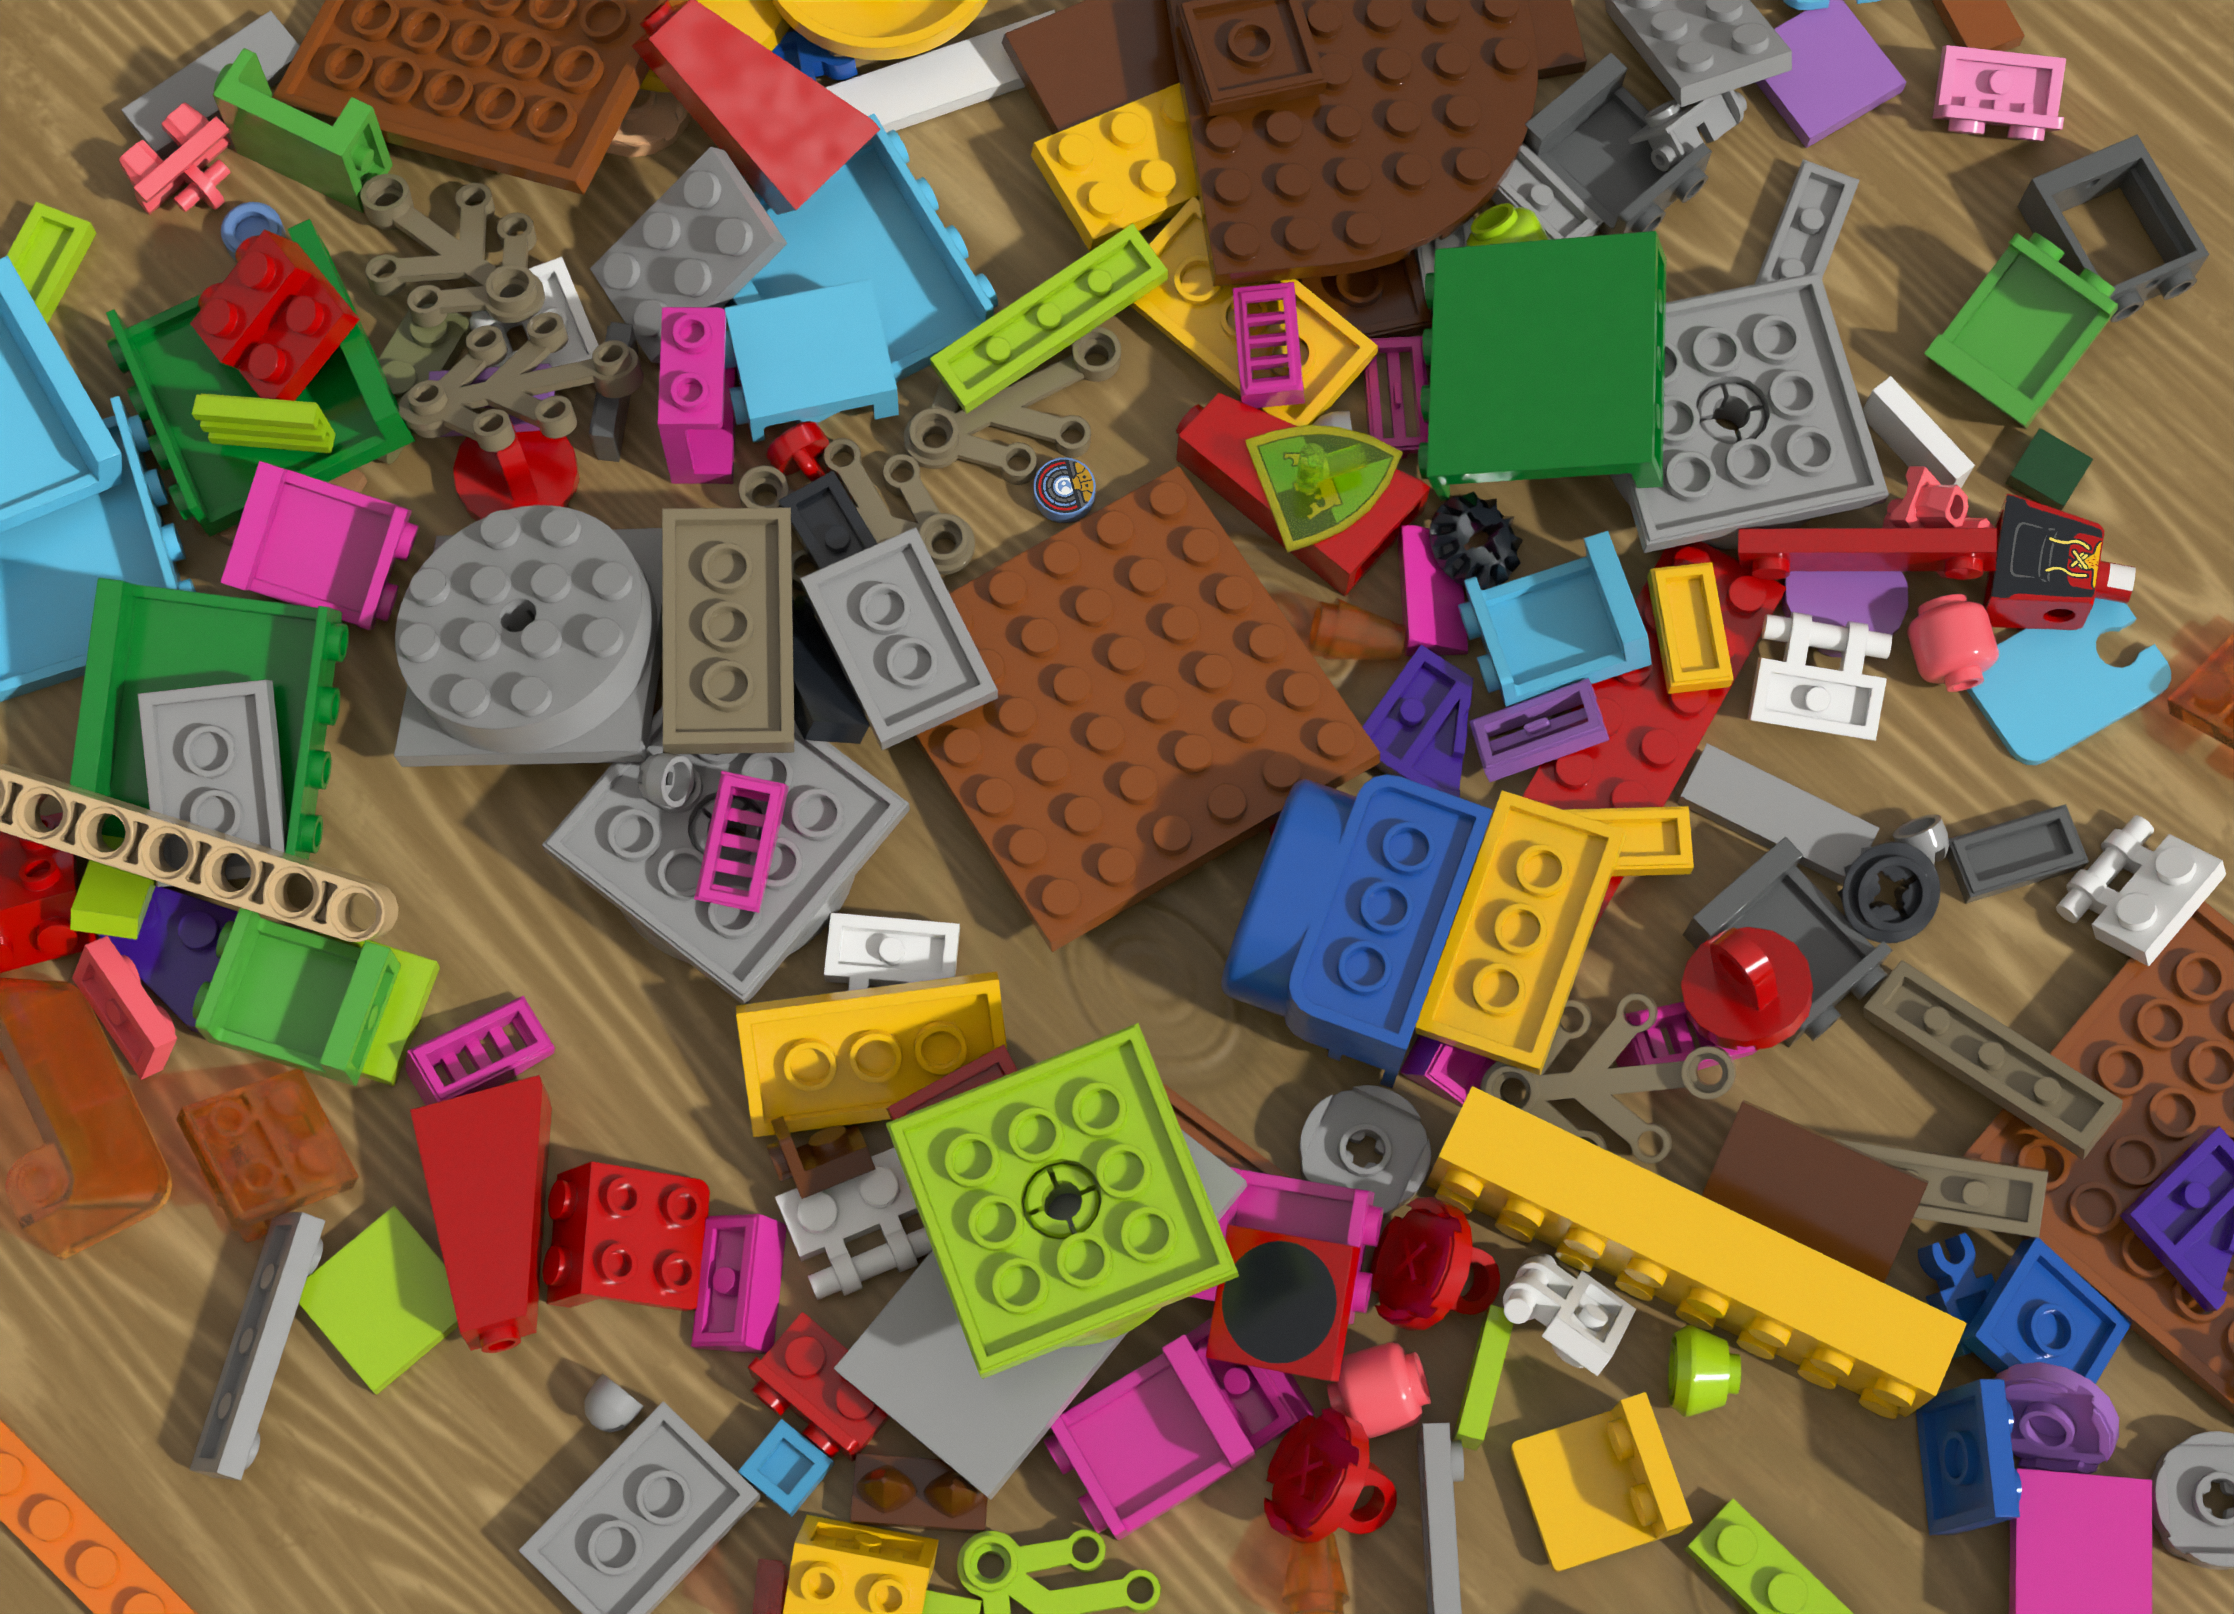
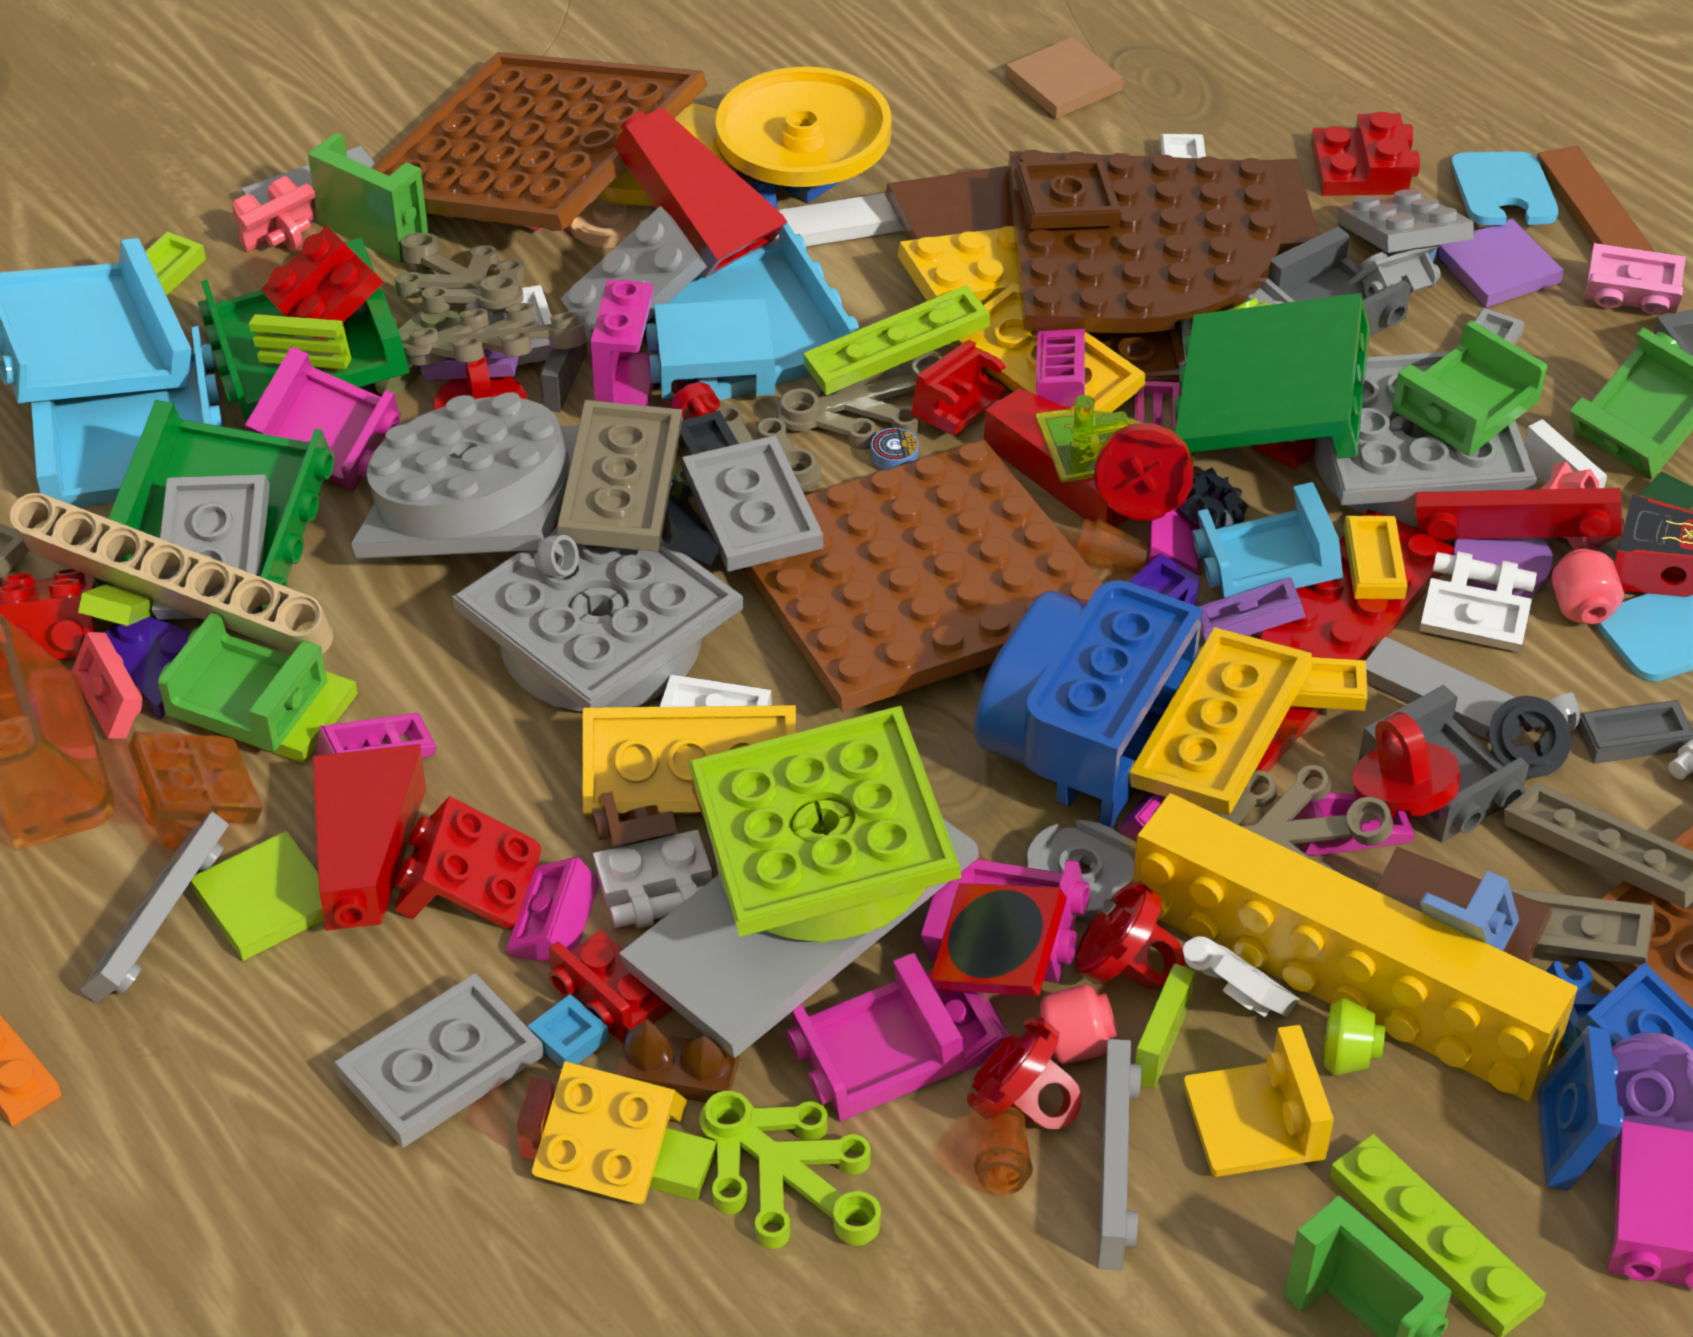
camera: 10 degrees right, 25 degrees down
(610, 1406) = (432, 975): light grey hinge -> none
(752, 788) = (615, 564): dark pink slope -> none
(1138, 389) = (957, 389): none -> red hinge
(1395, 545) = (1144, 471): none -> red tile
(1801, 363) = (1471, 389): none -> bright green panel
(1840, 1250) = (1489, 915): none -> medium blue panel

